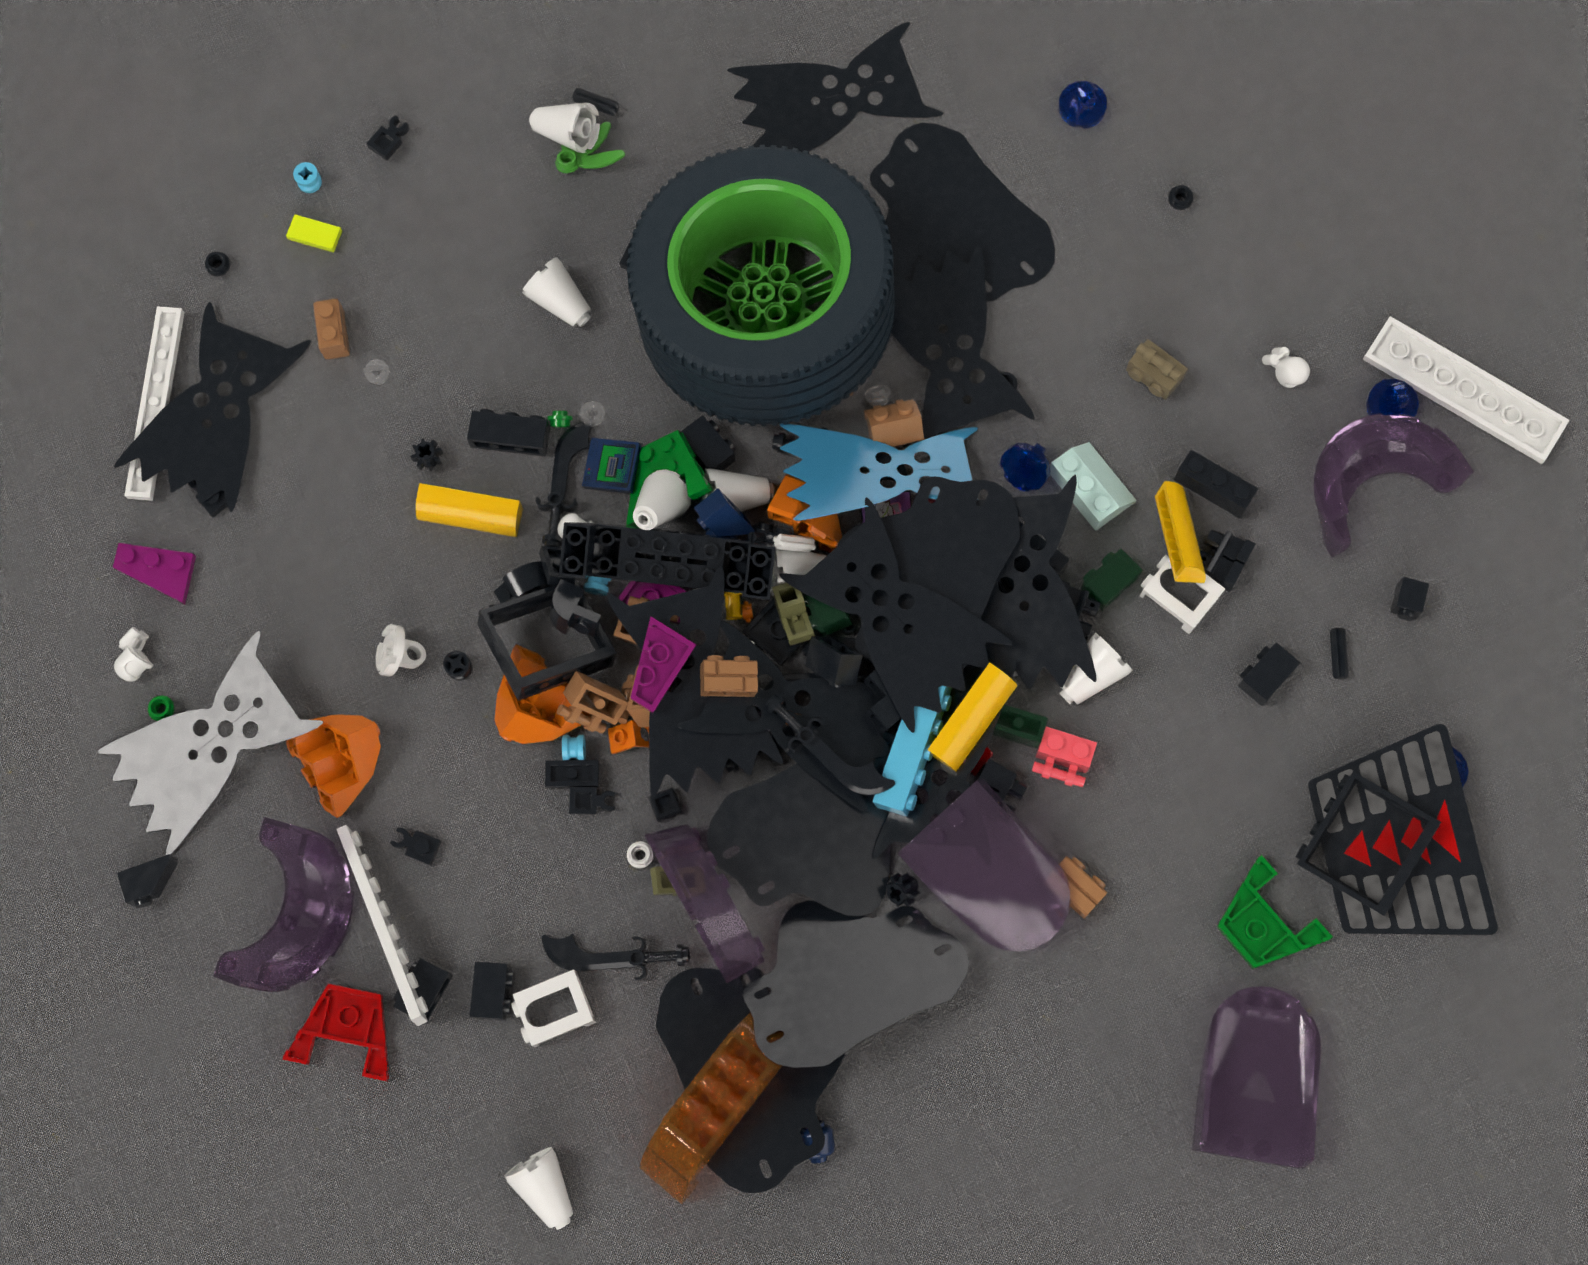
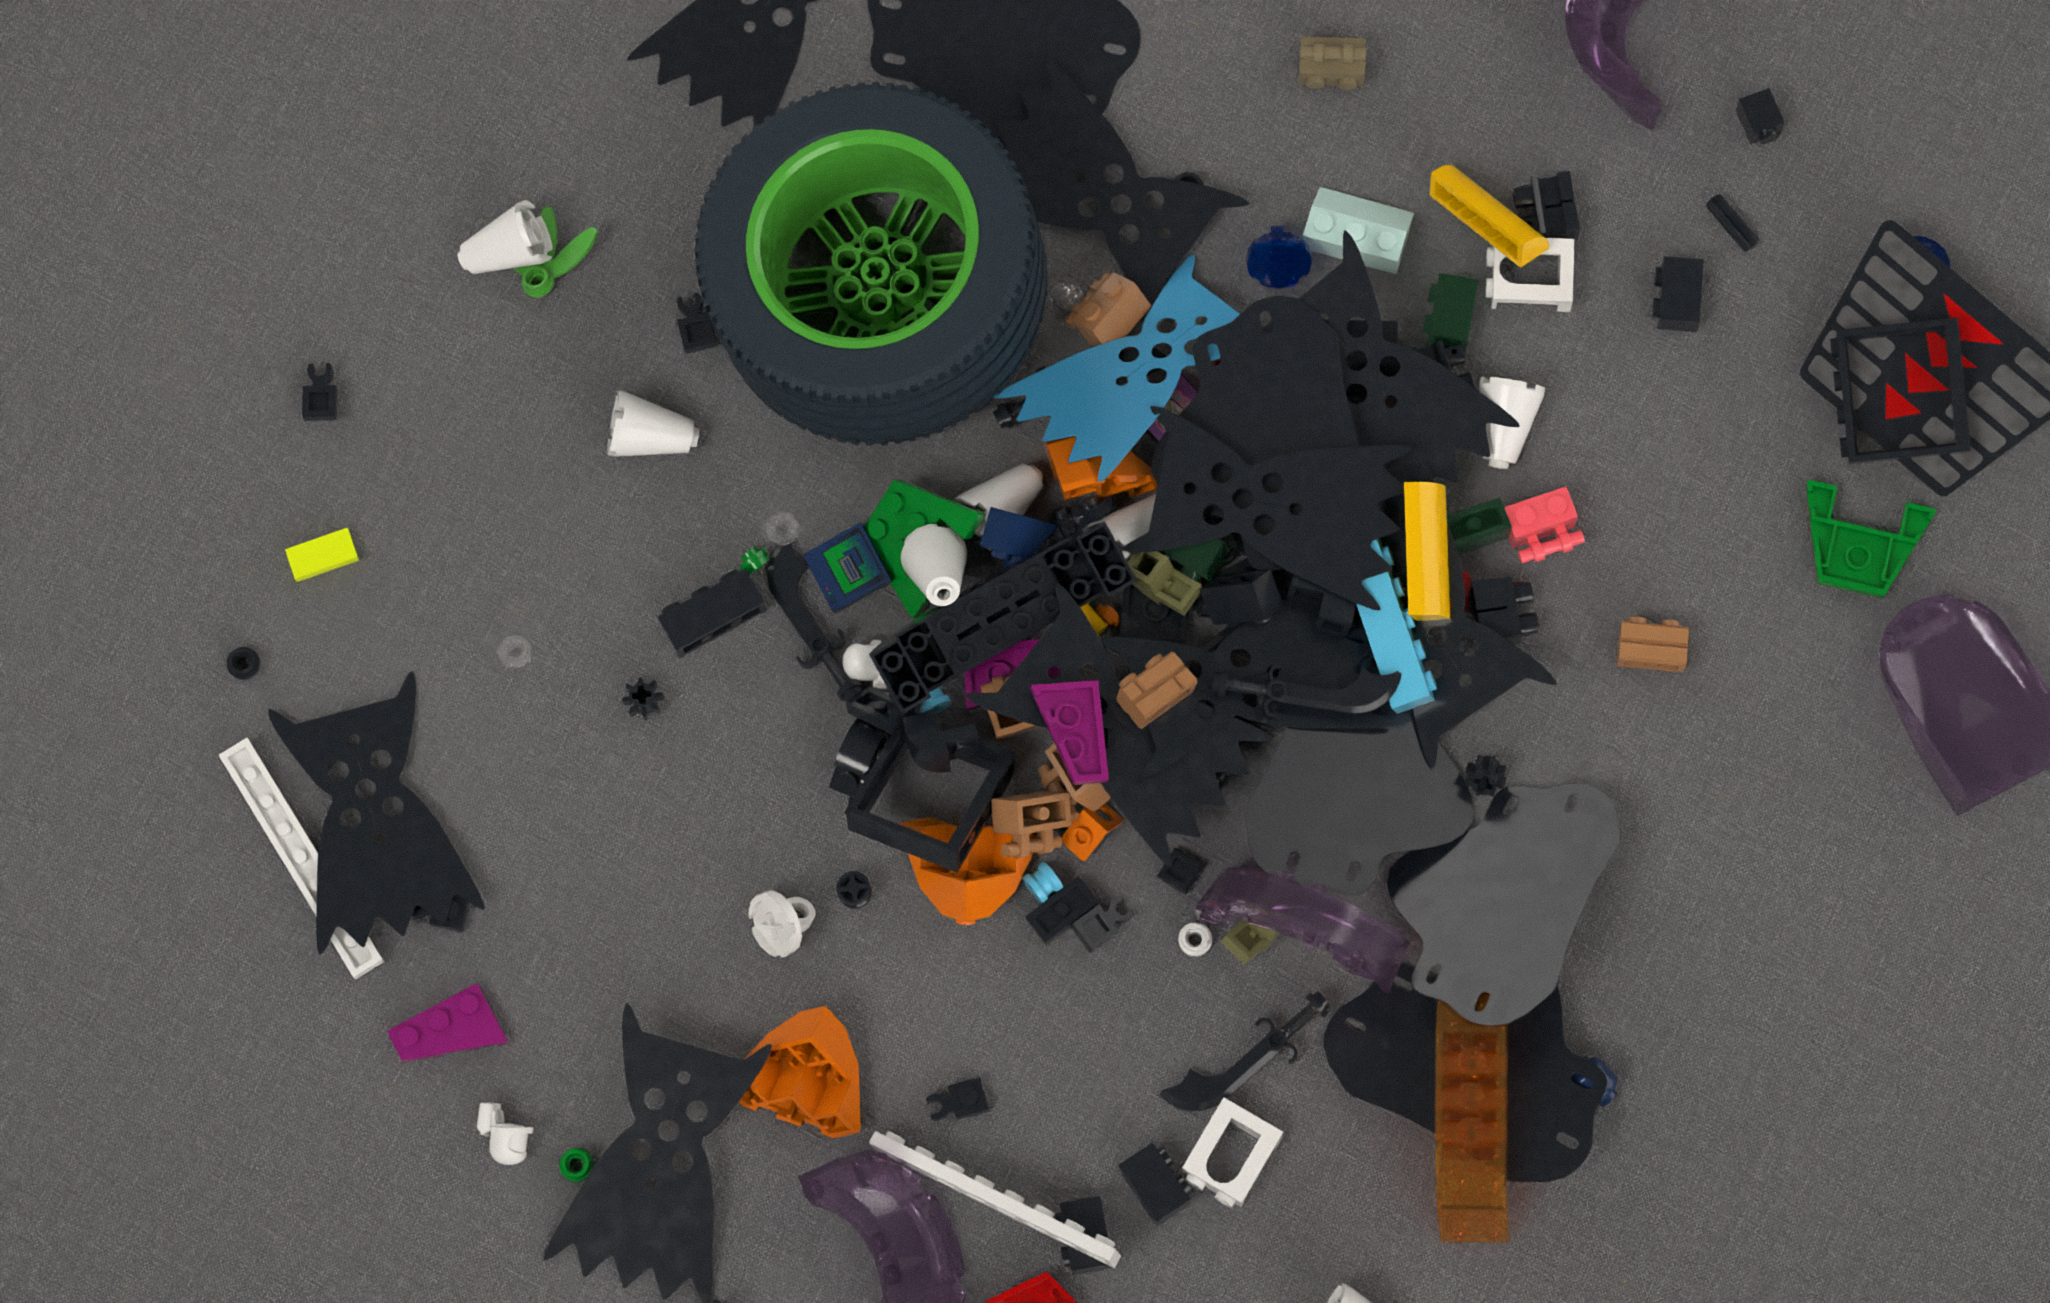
camera: 35 degrees left, 0 degrees up
(311, 182) = (271, 505): medium azure wheel -> none
(331, 329) = (430, 641): medium nougat brick -> none
(468, 510) = (734, 723): yellow brick -> none
(601, 103) = (513, 194): black axle -> none
(708, 445) = (936, 472): black brick -> none
(794, 543) = (1111, 506): white axle -> none
(991, 871) = (1562, 690): clear purple windscreen -> none
(1215, 484) = (1482, 138): black brick -> none

